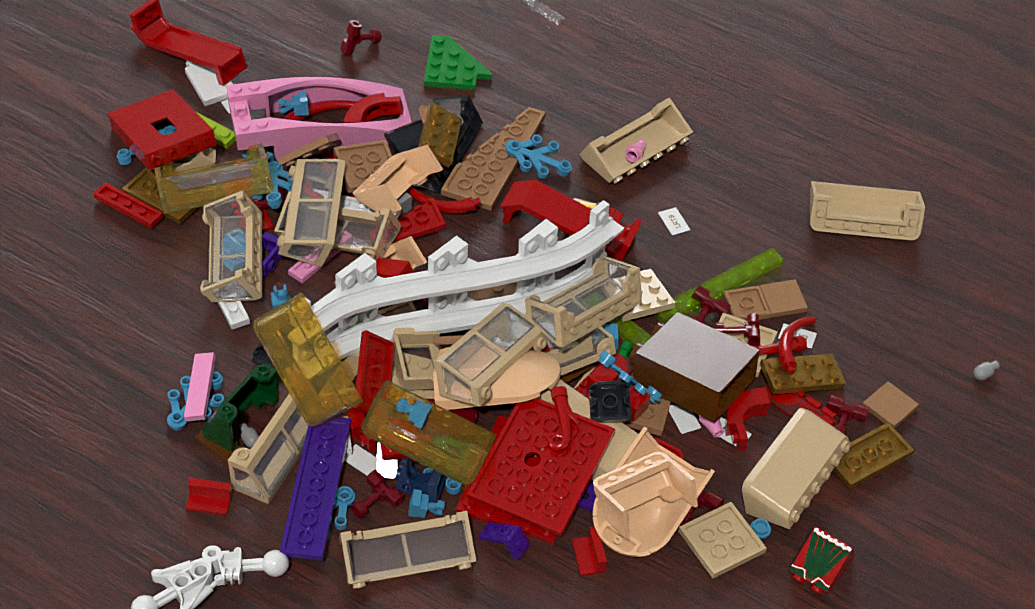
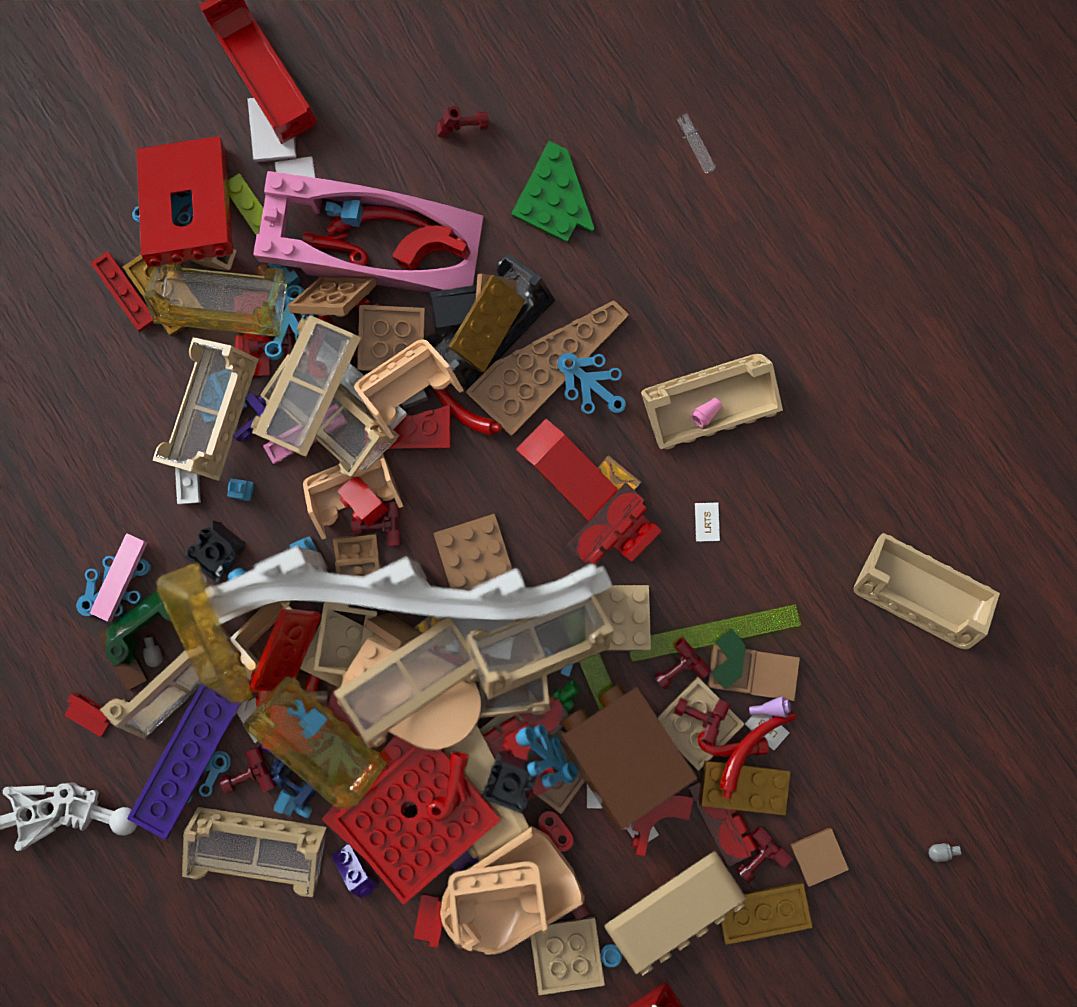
camera: 25 degrees right, 35 degrees up
(745, 297) = (732, 667): none -> dark green tile
(797, 311) = (777, 707): none -> lavender cone

